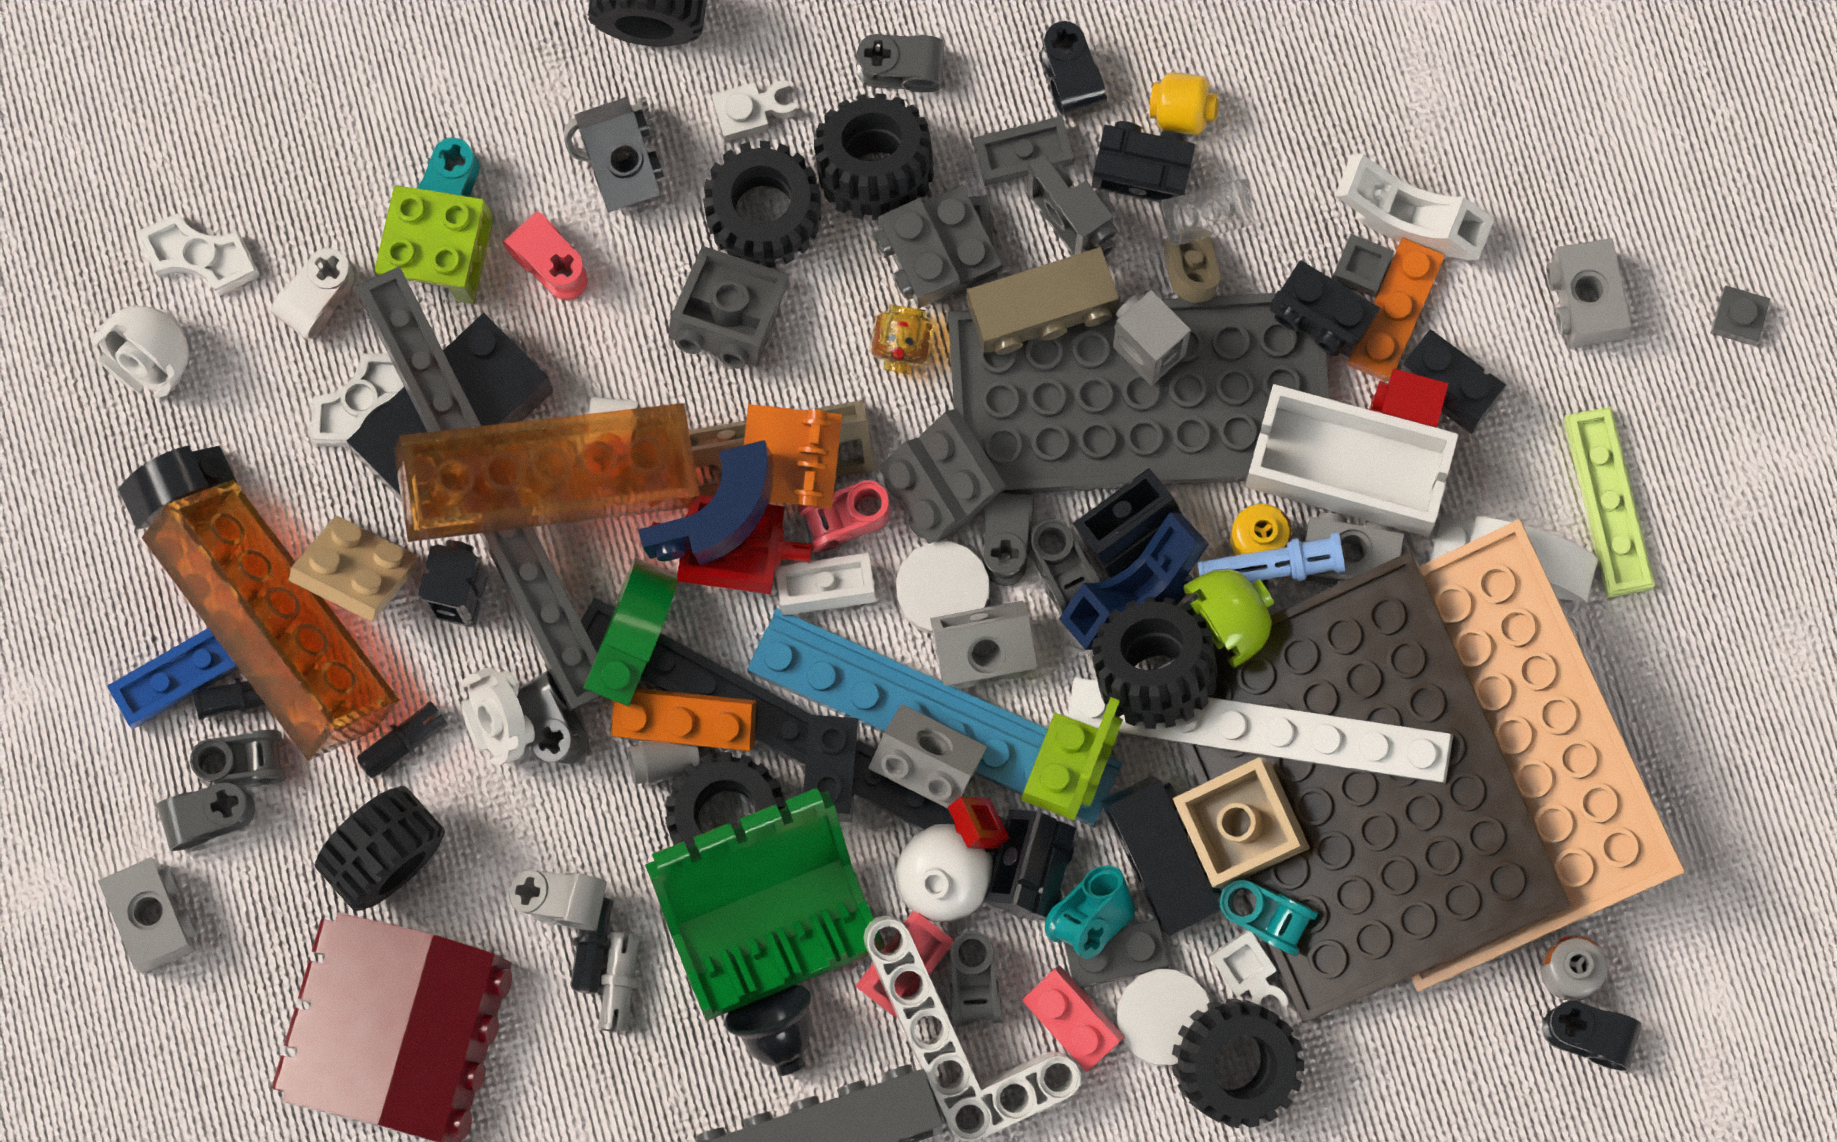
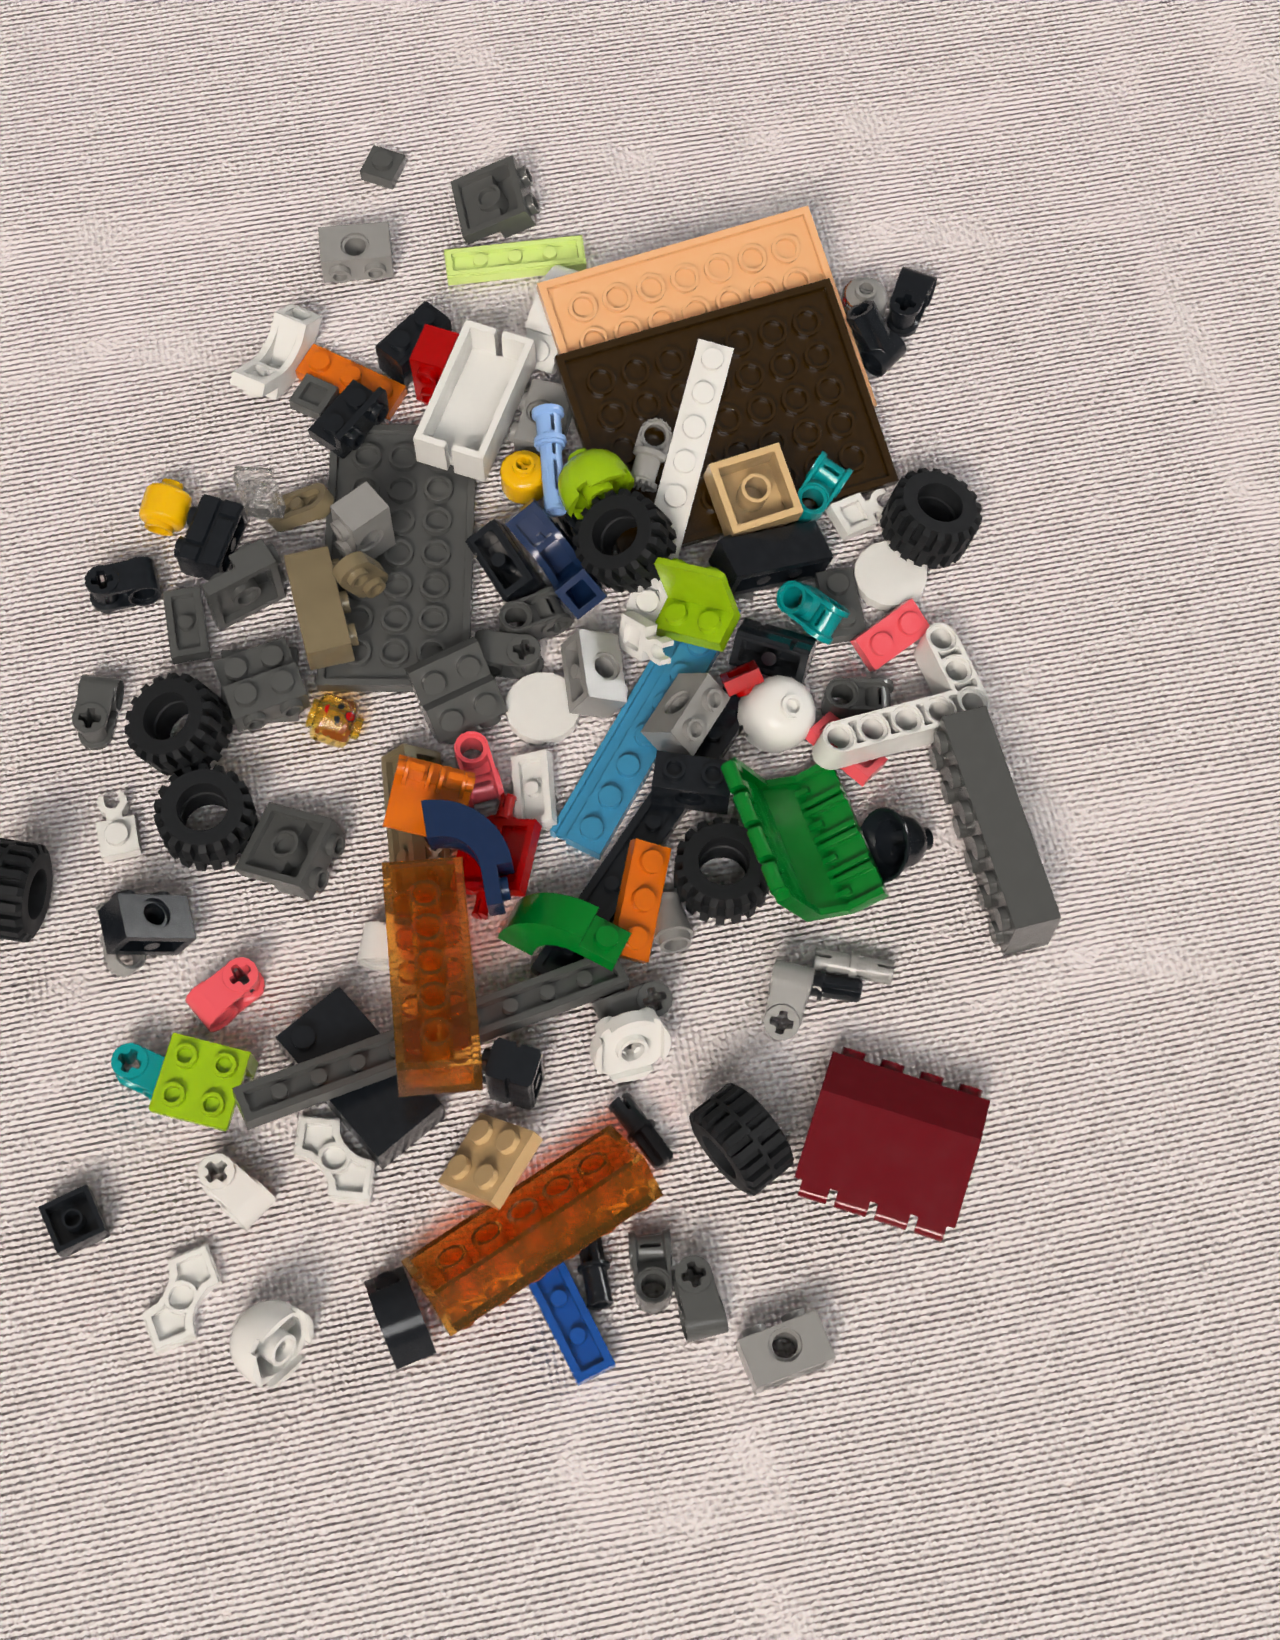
camera: 90 degrees left, 10 degrees down
(276, 127) = (74, 1221): none -> black piece
(1037, 697) = (639, 639): none -> white plate
(1082, 342) = (360, 575): none -> dark tan plate
(1282, 685) = (649, 457): none -> light grey connector
(1512, 987) = (879, 344): none -> black piece
(1692, 465) = (495, 200): none -> dark grey plate

